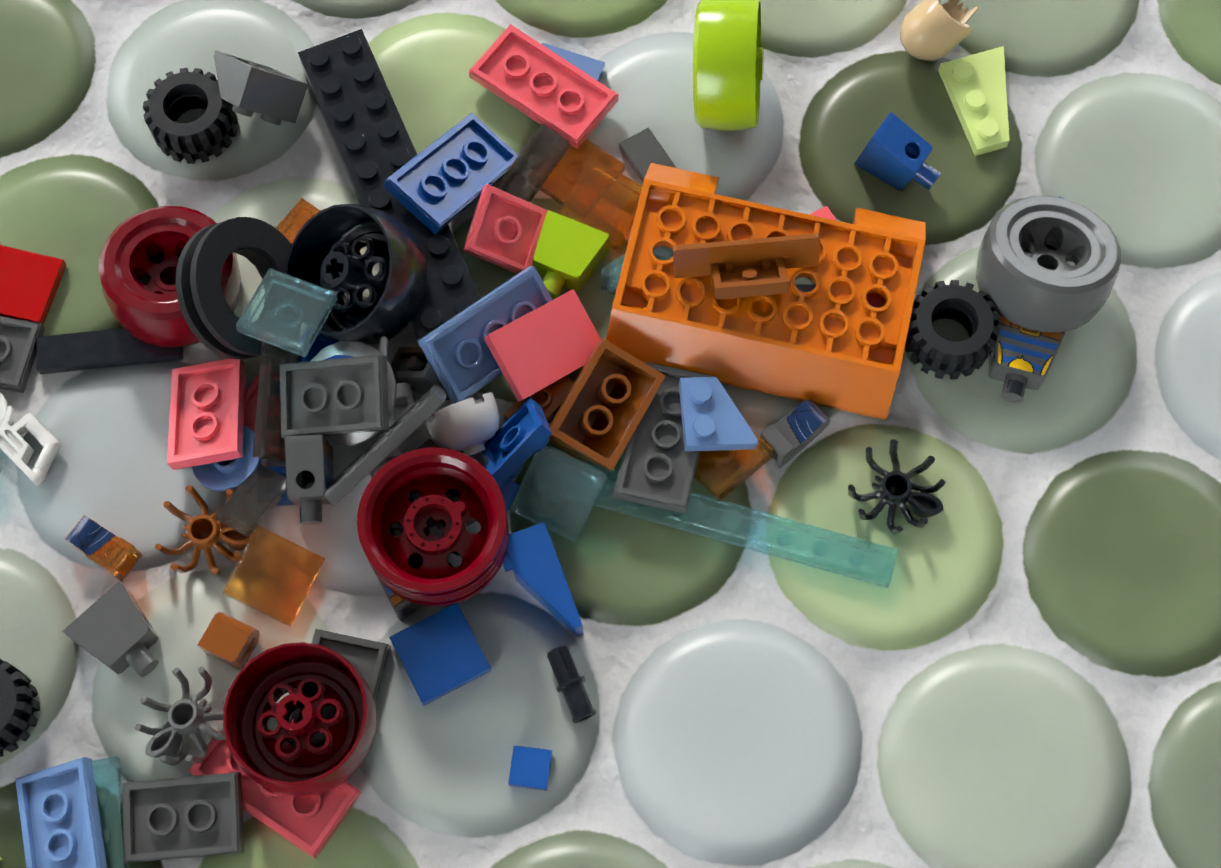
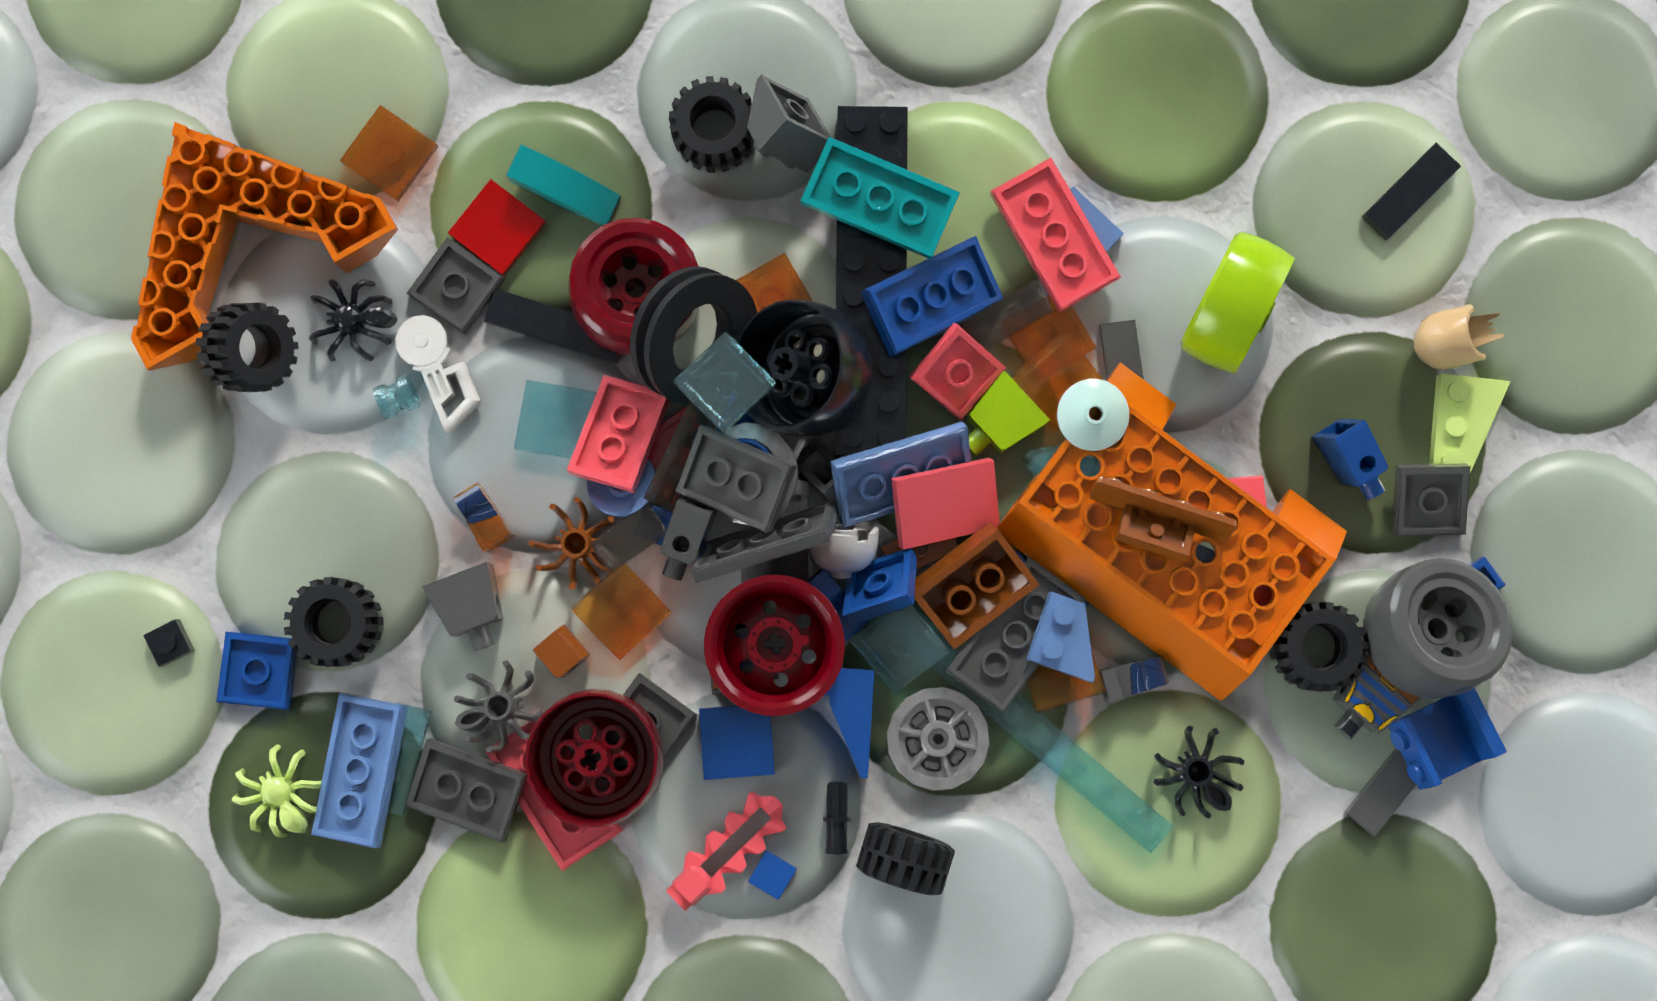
camera: 20 degrees right, 15 degrees up
(63, 221) = (562, 186): none -> teal slope
(136, 431) = (552, 418): none -> clear light blue tile
(367, 105) = (879, 198): none -> teal plate
(454, 804) = (694, 882): none -> coral sword
(635, 565) = (938, 738): none -> flat silver piece
(641, 219) = (1075, 420): none -> light aqua dish
(653, 682) = (905, 858): none -> black tyre
(985, 167) = (1431, 499): none -> dark grey tile
(1081, 426) = (1381, 794): none -> dark grey tile
(1108, 359) = (1445, 738): none -> blue panel

